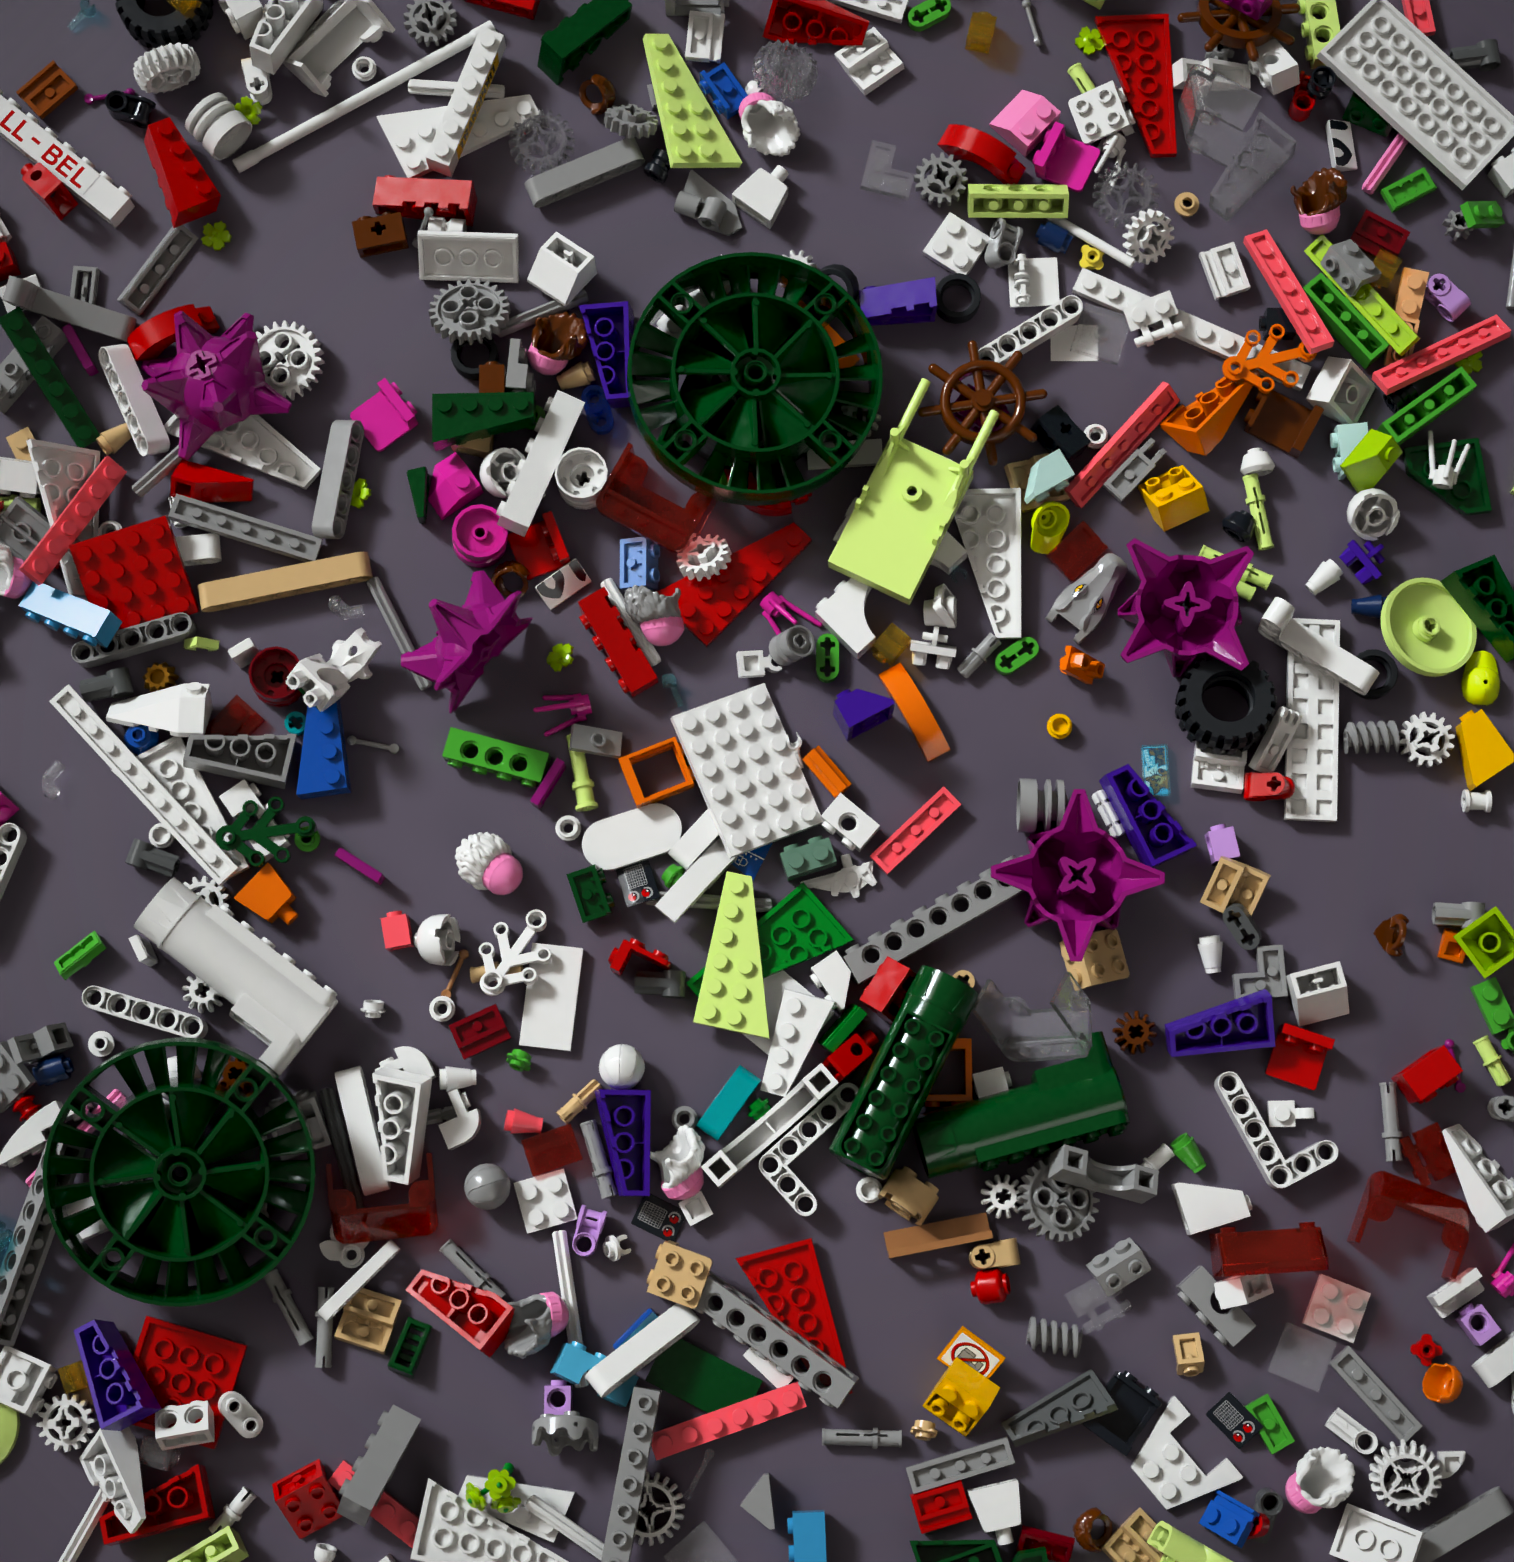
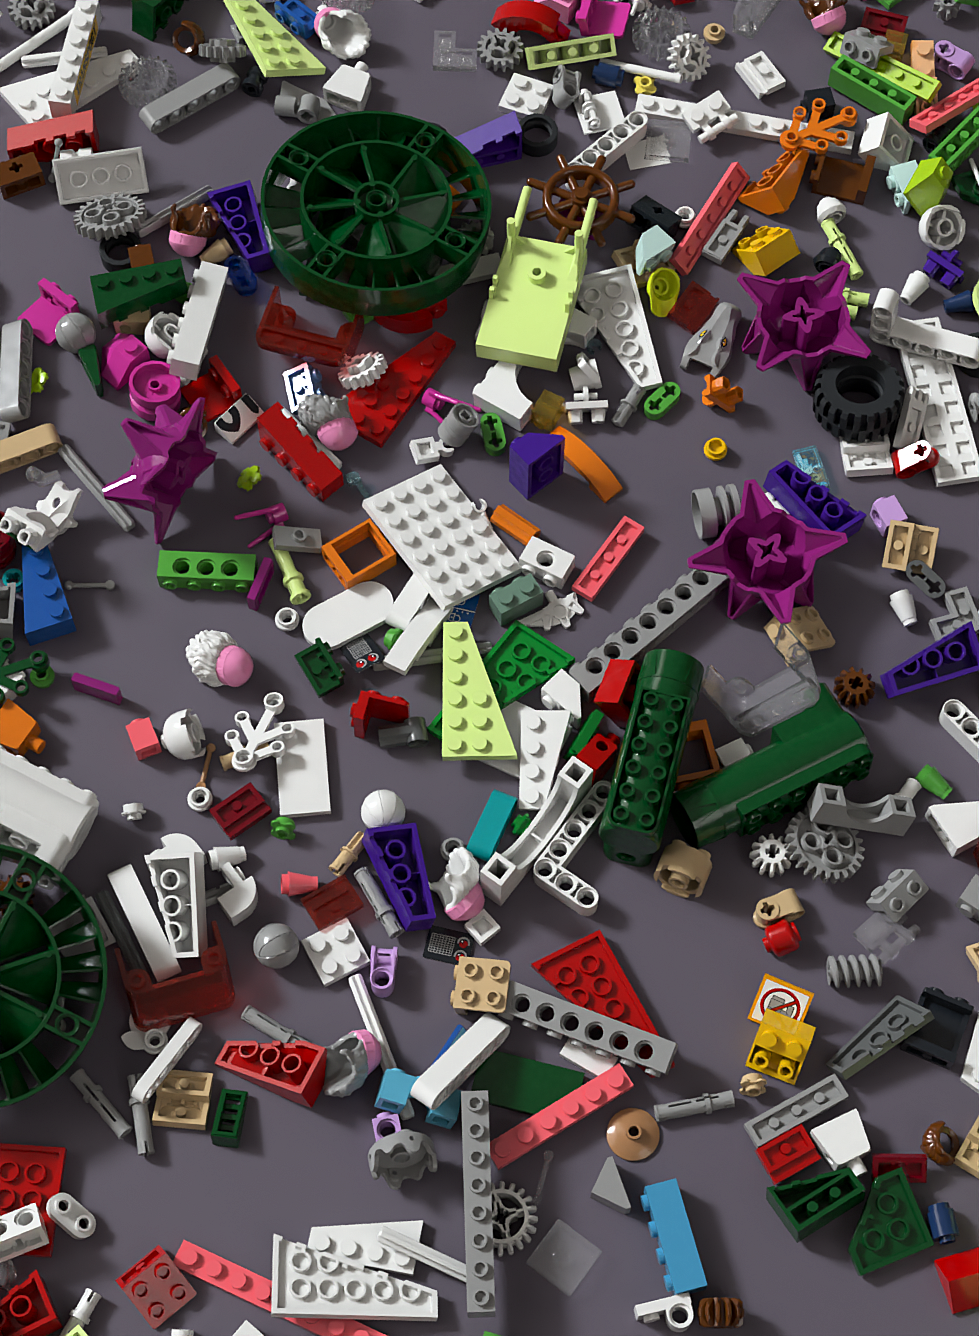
camera: 15 degrees left, 15 degrees down
(377, 1465) = (218, 1232): light grey wedge -> none
(408, 448) = (75, 332): none -> light grey piece
(498, 1484) = (347, 1219): lime plant -> none
(518, 372) = (162, 246): light grey plate -> none
(562, 269) = (186, 169): white slope -> none
(576, 466) = (236, 326): white wheel -> none
(612, 1247) = (410, 980): white plate -> none
(785, 1440) = (632, 1147): none -> medium nougat dish
(868, 1189) = (643, 877): white plate -> none
(937, 1235) = (719, 904): medium nougat fence -> none
(1288, 292) = (820, 74): coral plate -> none

